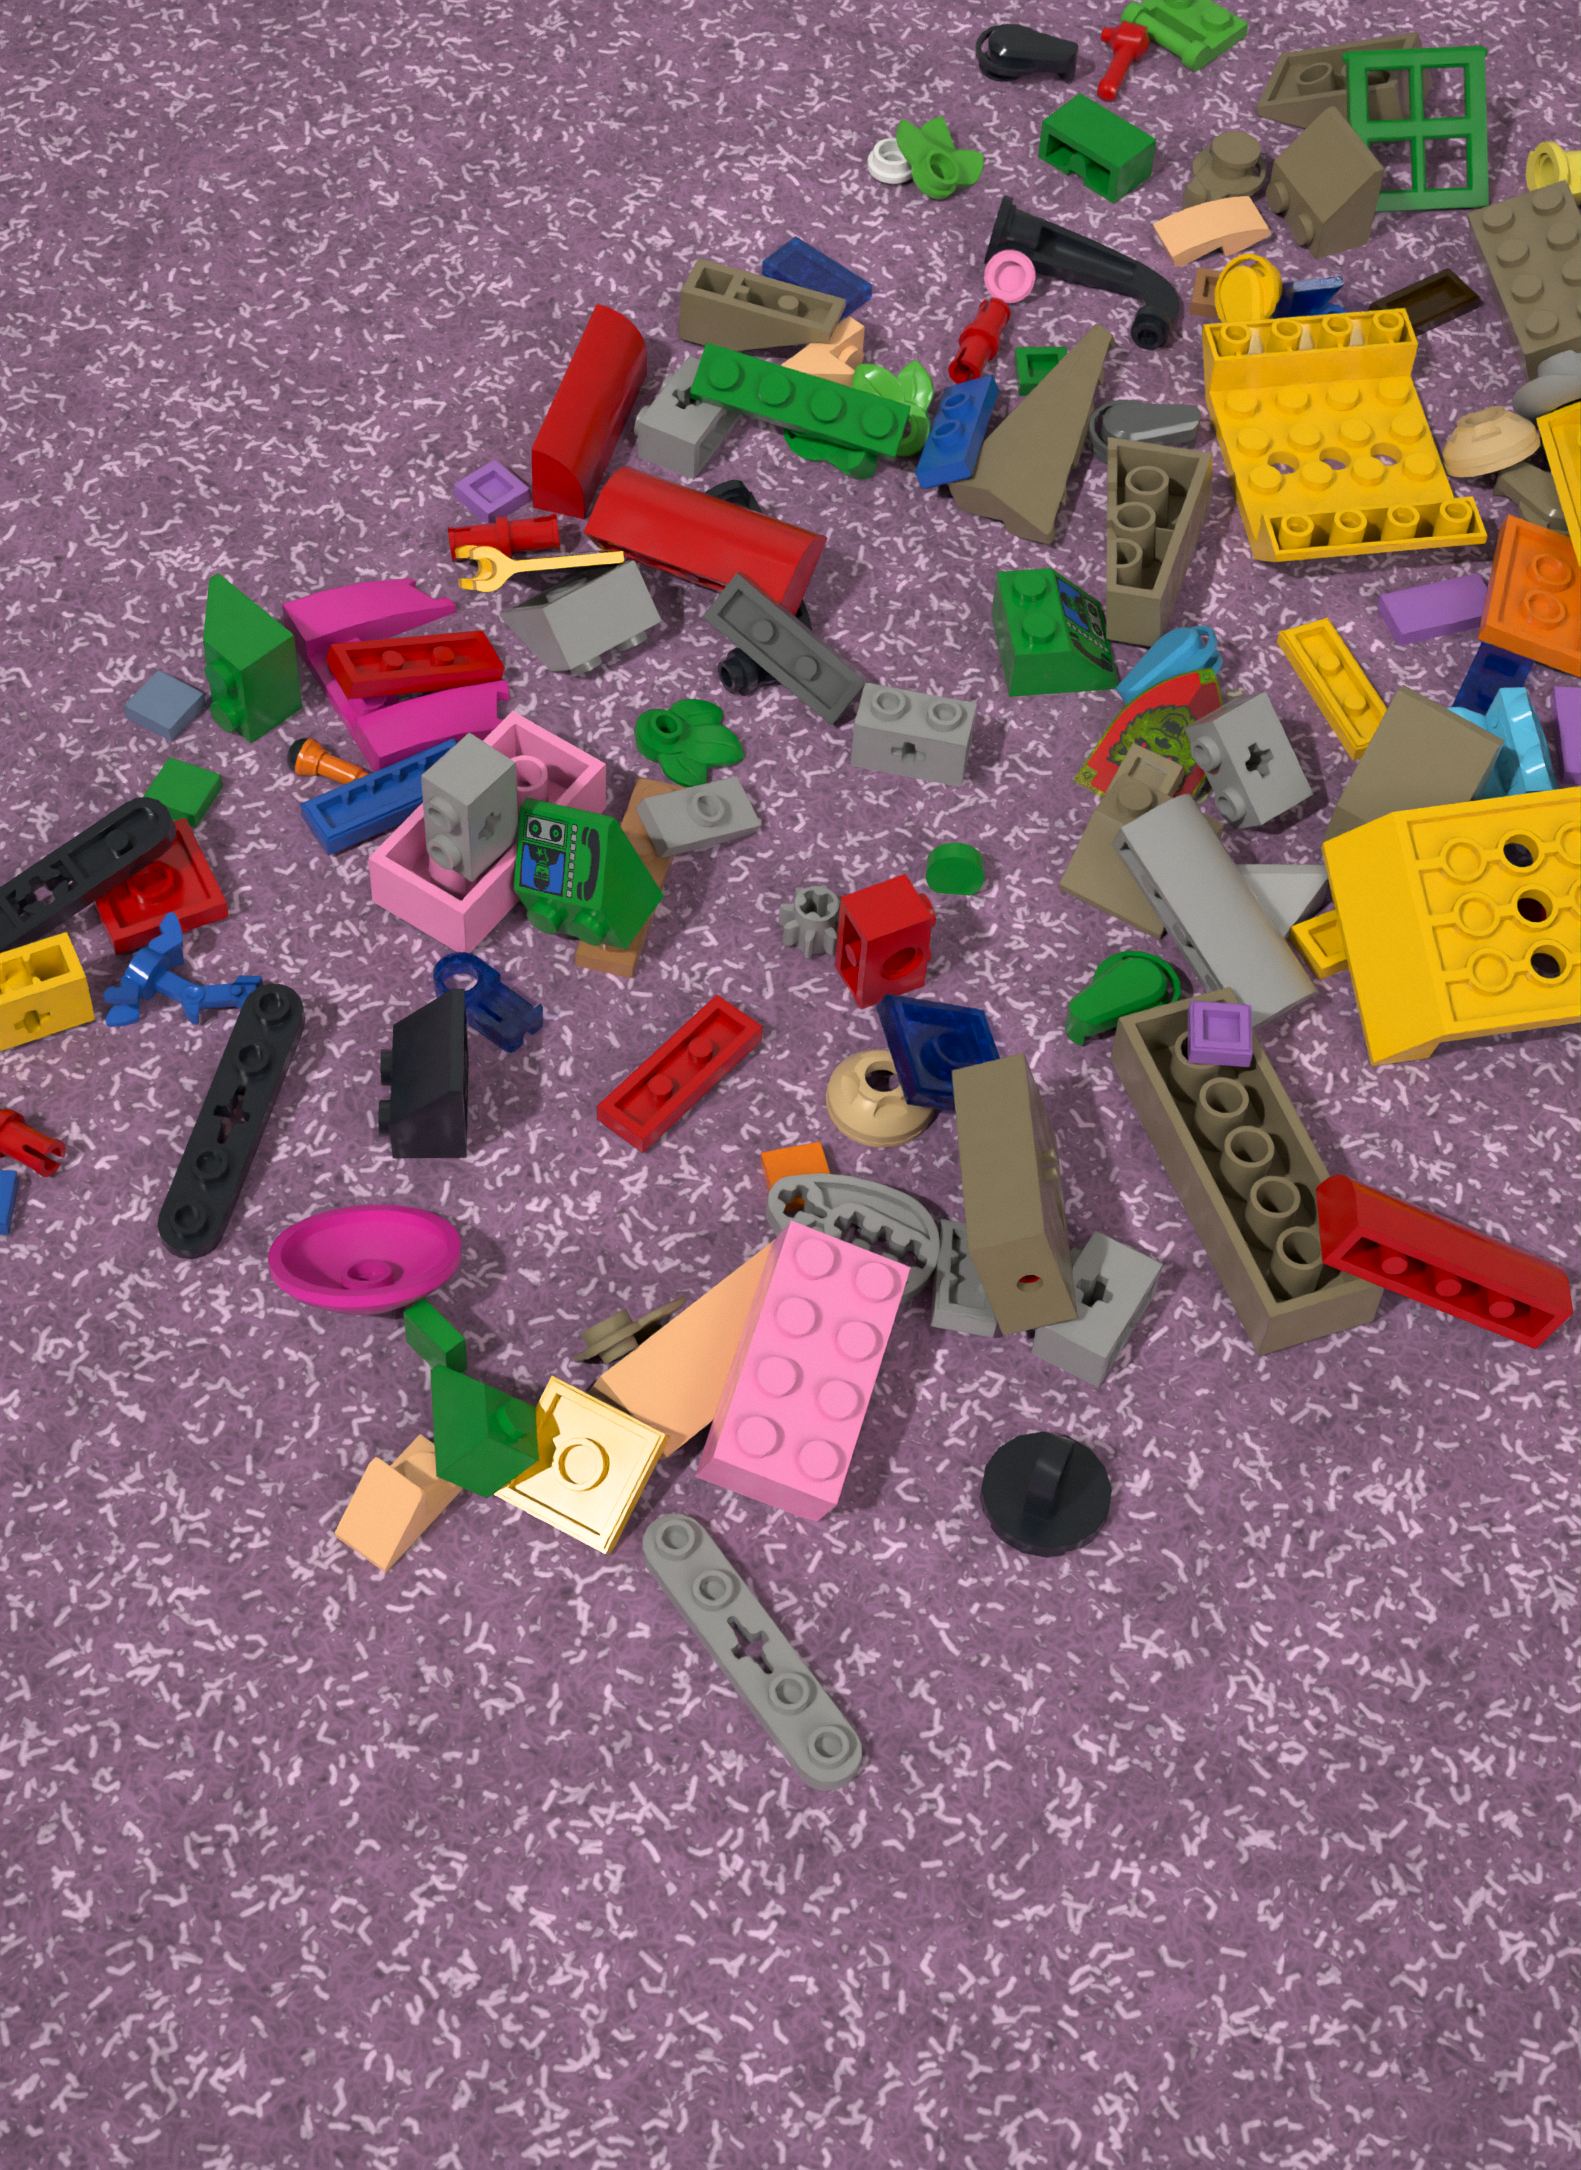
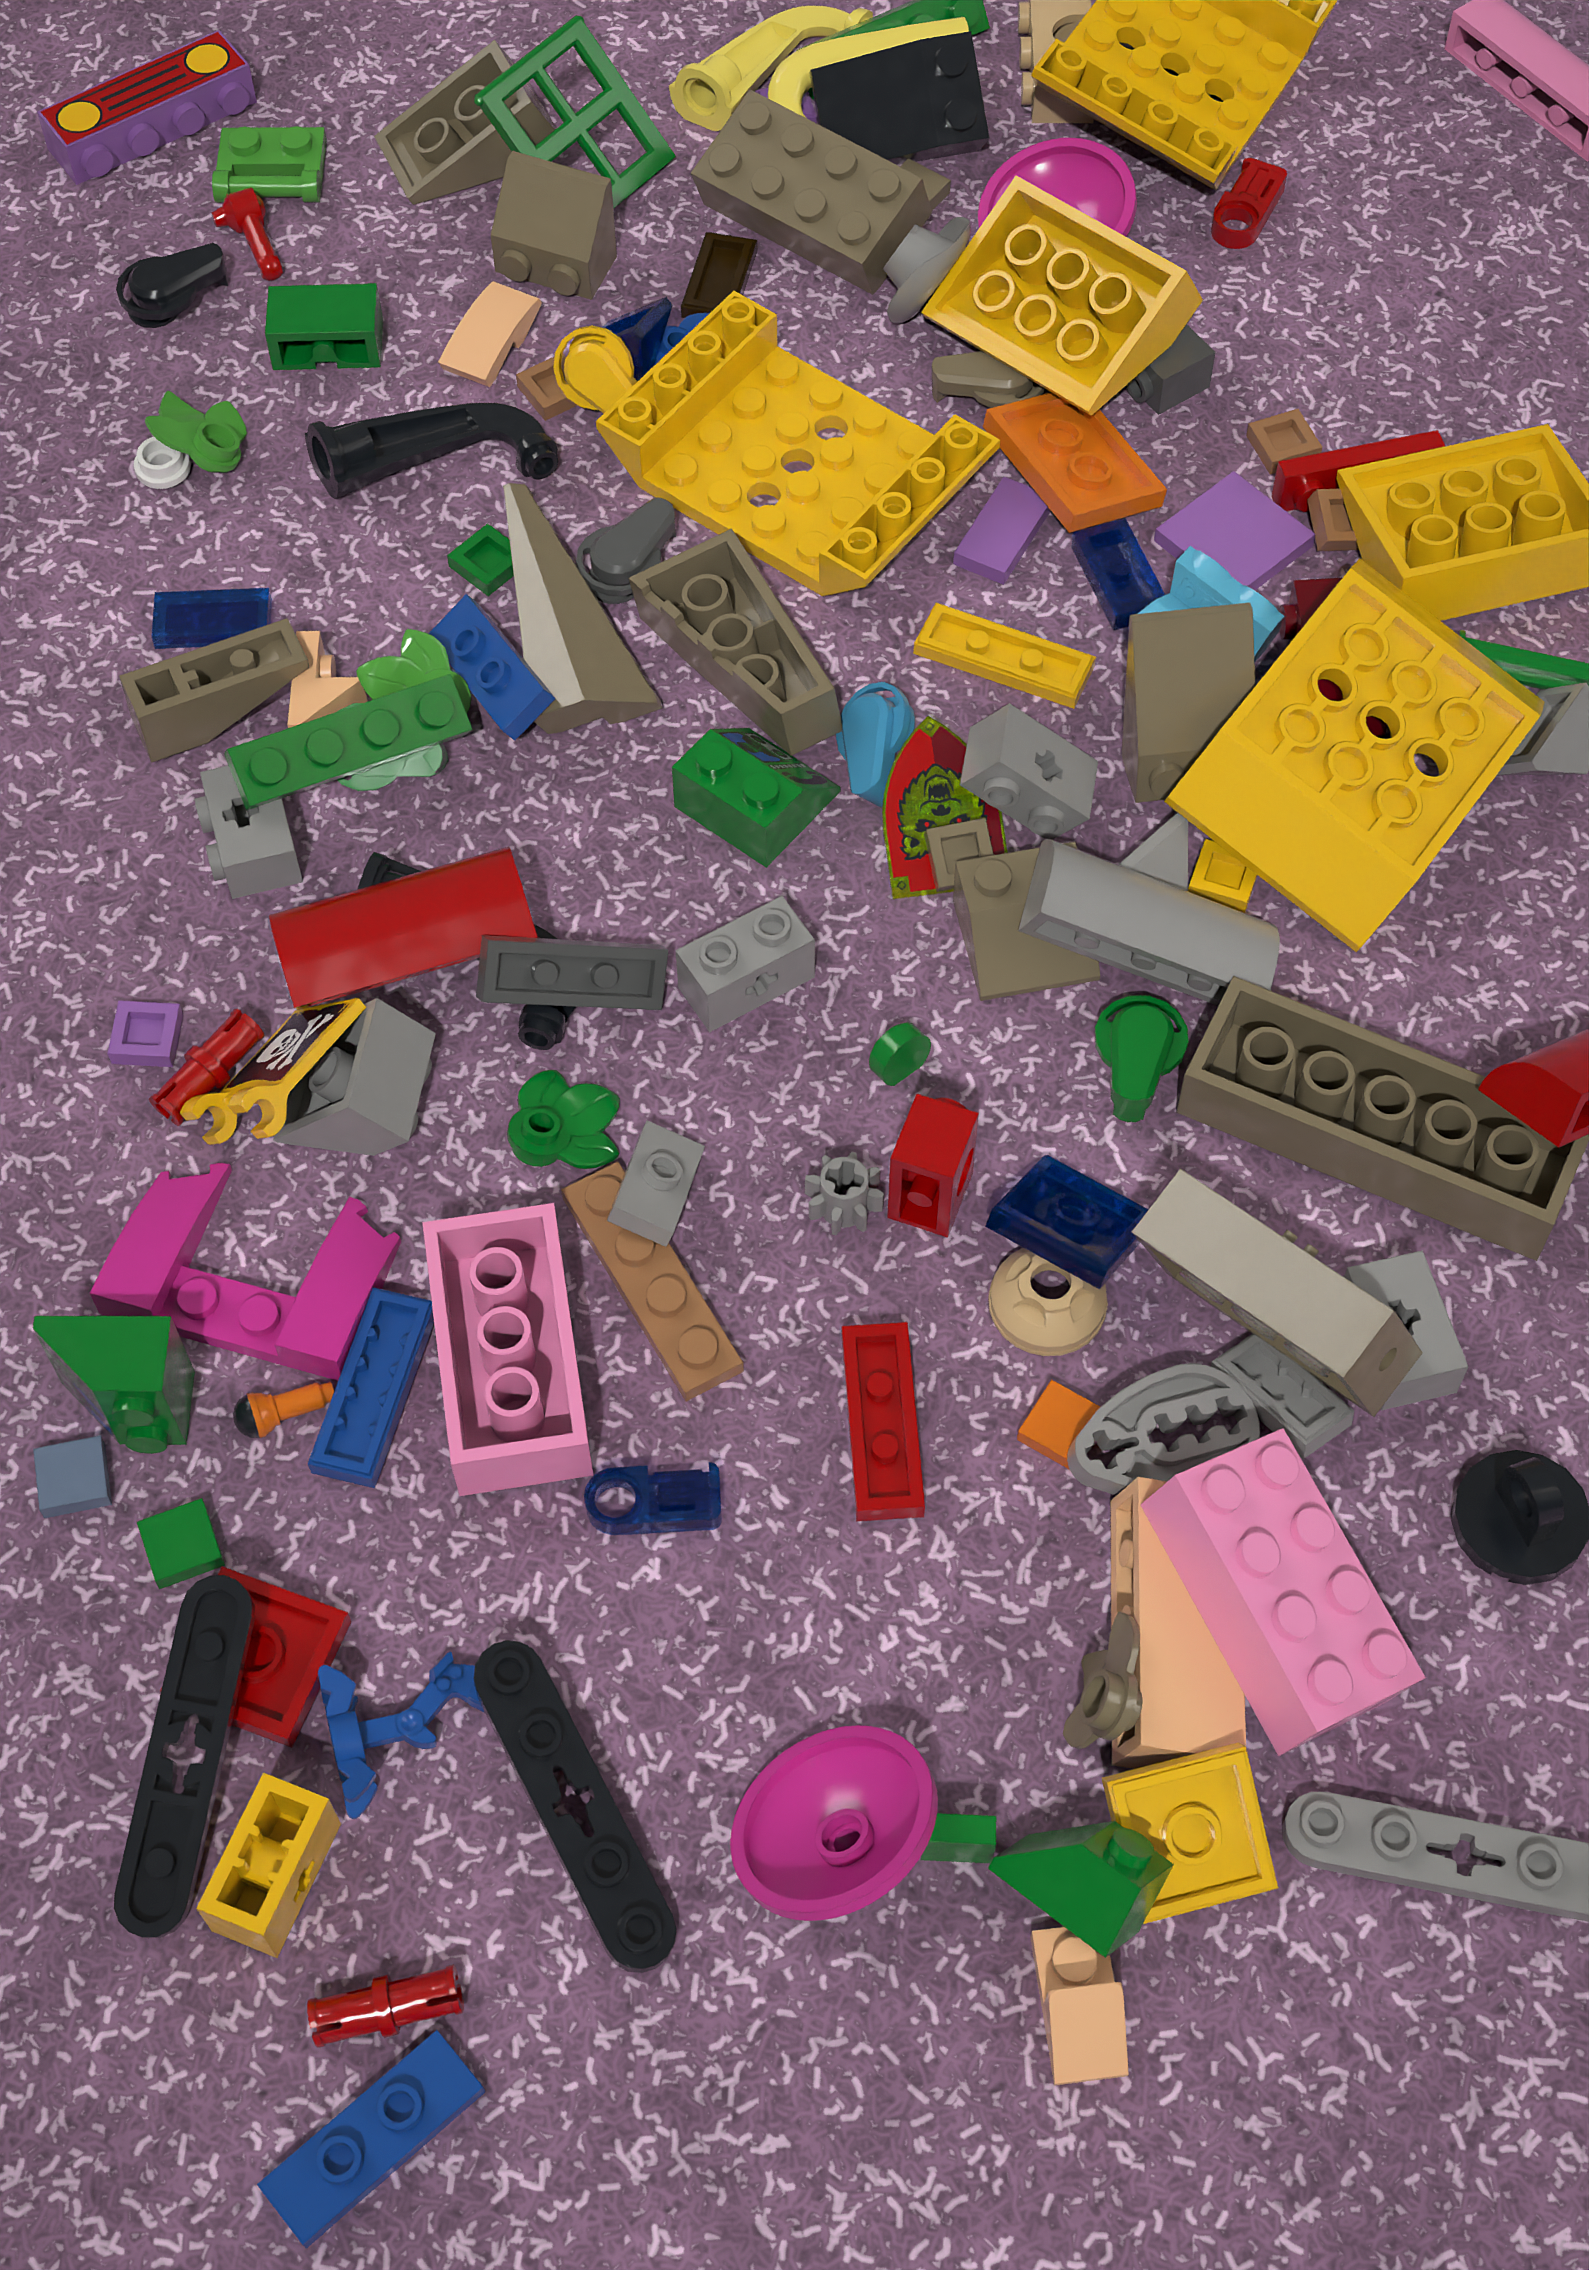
camera: 40 degrees left, 5 degrees up
(414, 664) = (270, 1250): red plate -> none
(428, 1081) = (708, 1614): black slope -> none
(470, 807) = (520, 1344): light grey brick -> none
(581, 875) = (646, 1323): green slope -> none
(588, 414) = (165, 895): red brick -> none
(979, 341) = (413, 572): red pin -> none
(1009, 275) = (376, 494): bright pink tile -> none
(1219, 1033) = (1275, 1022): medium lavender tile -> none
(1225, 170) = (449, 274): dark tan piece -> none
(1489, 442) = (907, 361): tan piece -> none

